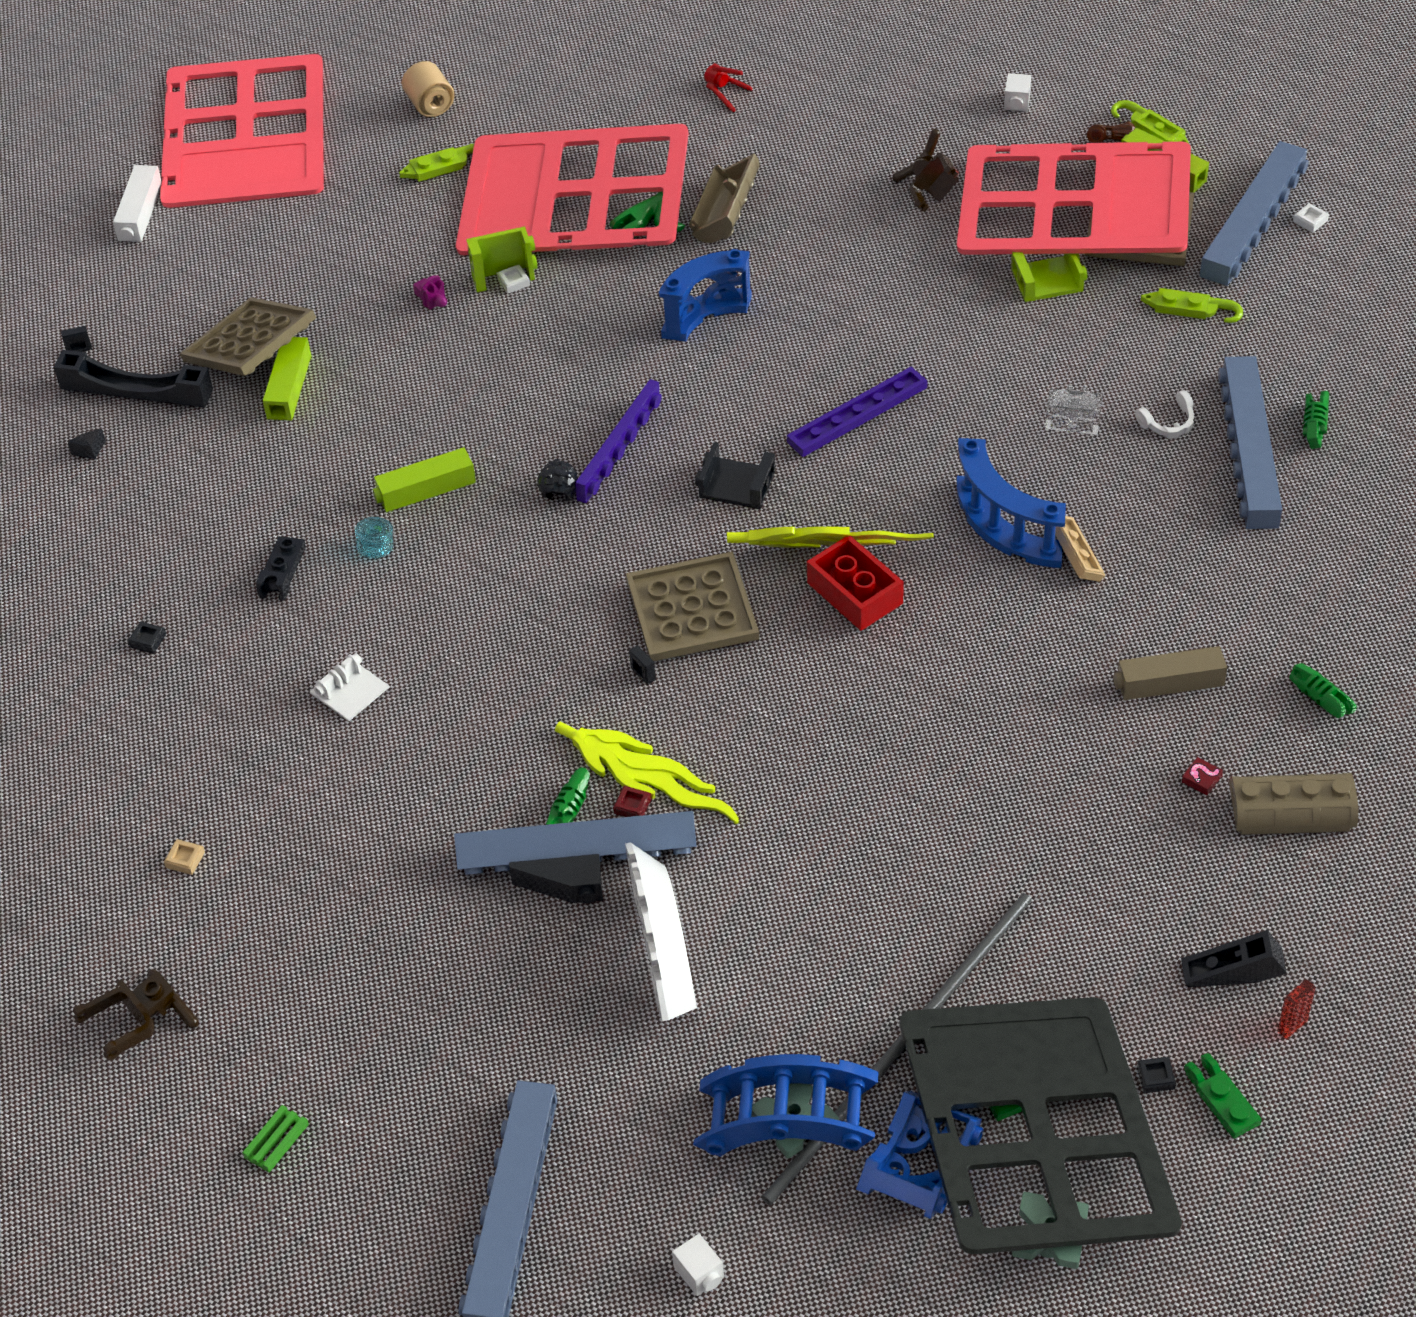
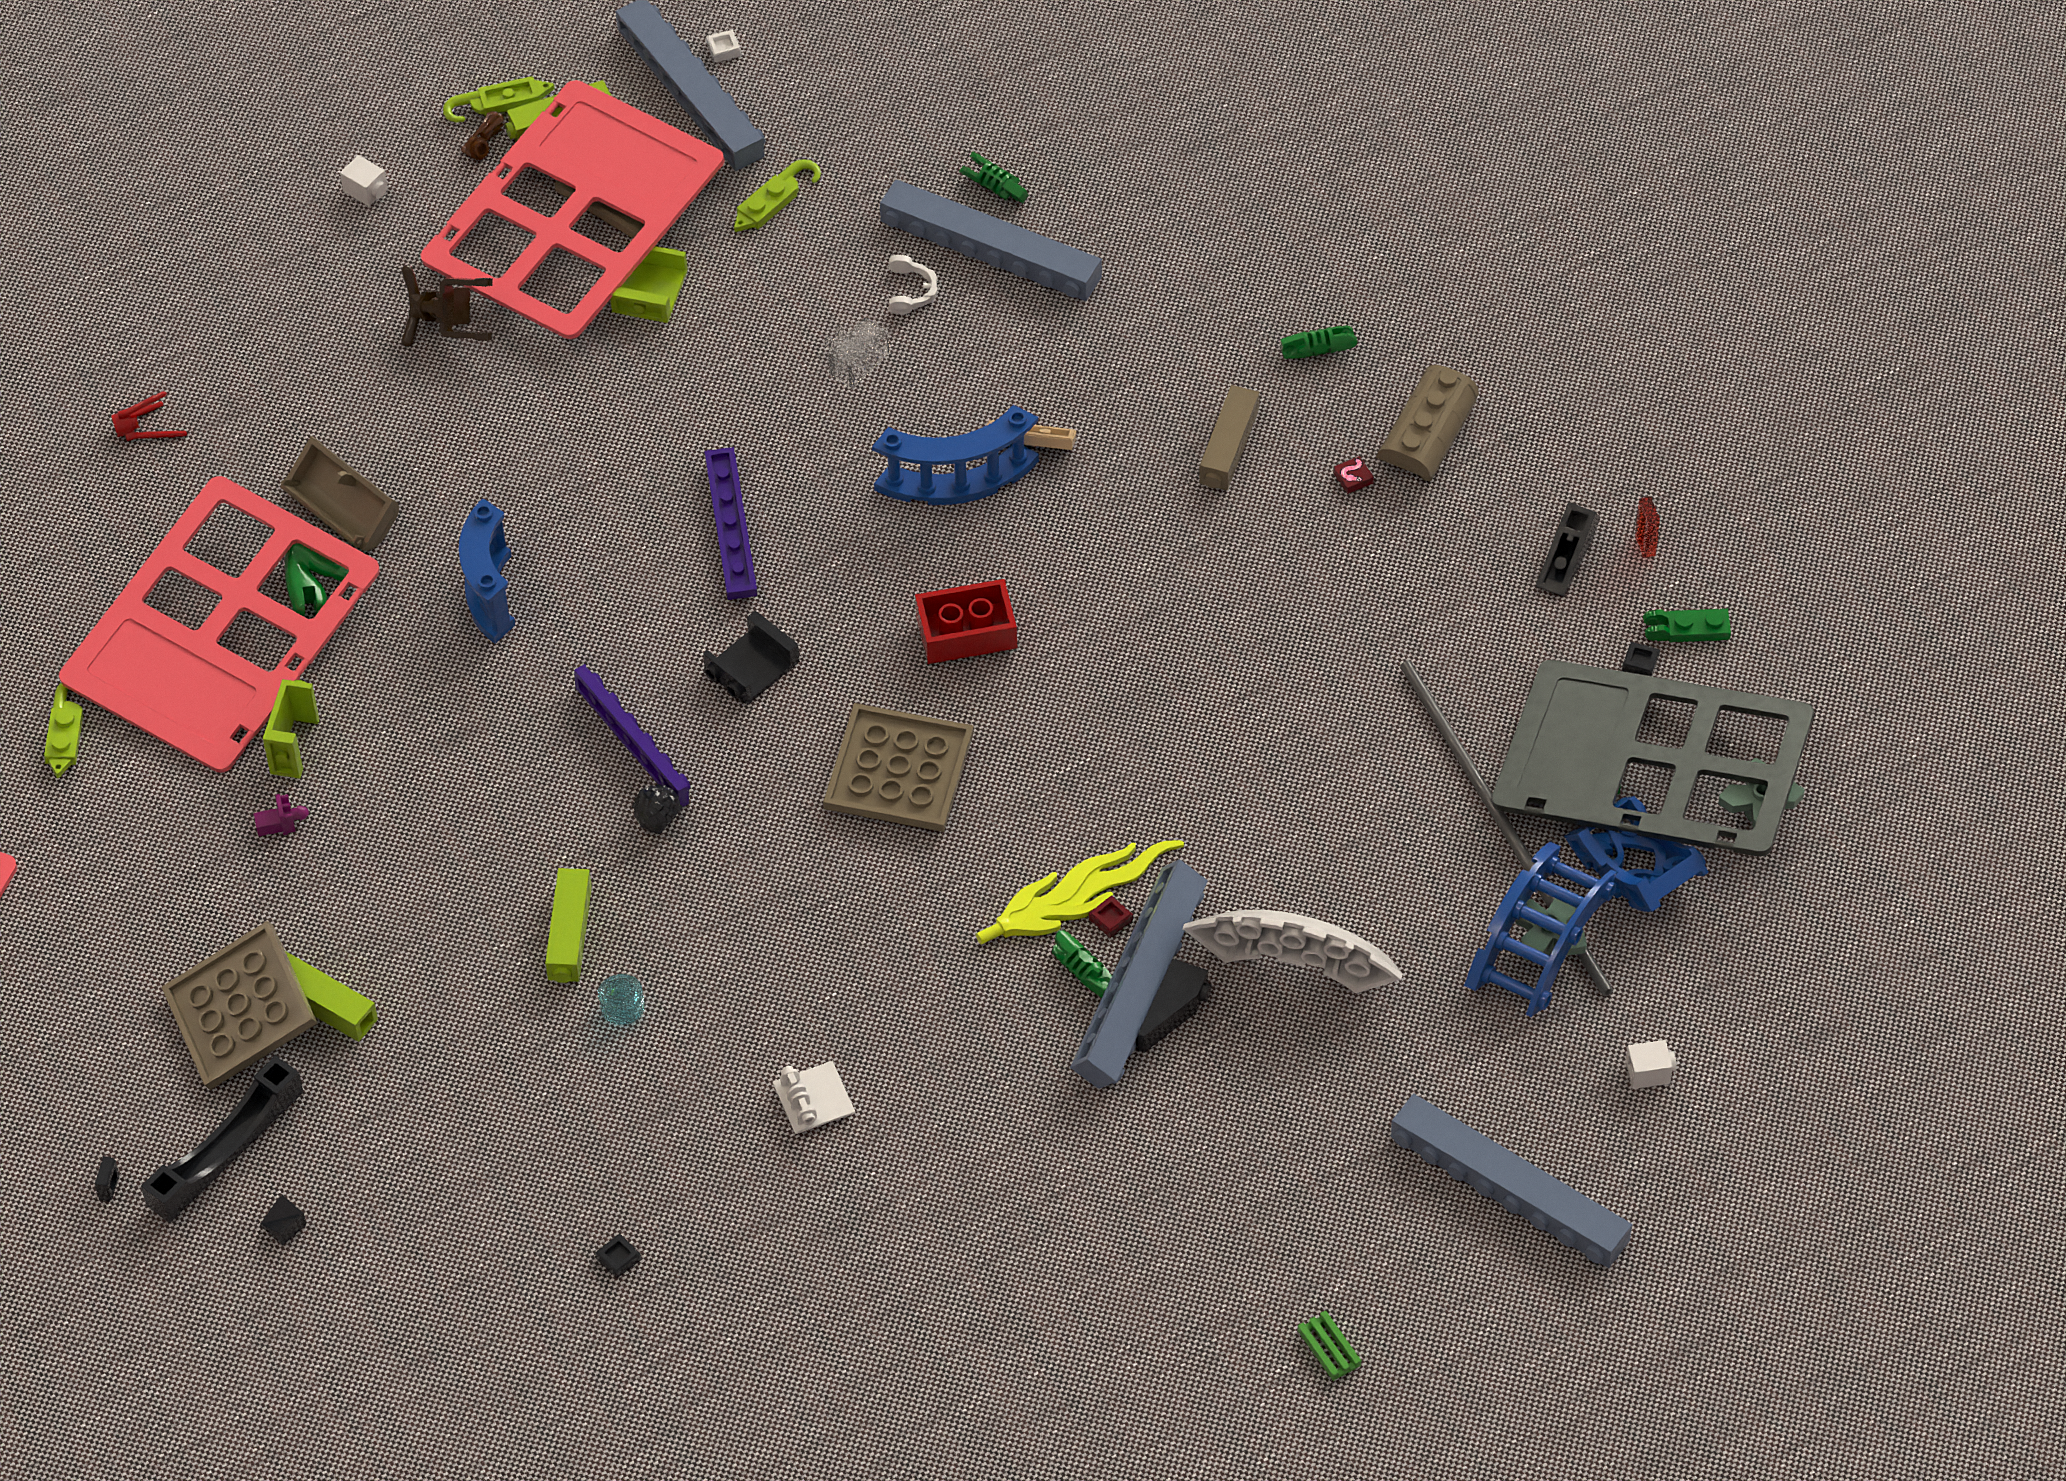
camera: 65 degrees left, 5 degrees up
(143, 1002) = (1122, 1399): dark brown piece -> none
(184, 857) = (942, 1315): tan tile -> none
(280, 567) = (602, 1099): black plate -> none
(513, 279) = (310, 735): white tile -> none
(642, 664) = (950, 837): black tile -> none
(816, 536) = (853, 675): neon yellow piece -> none

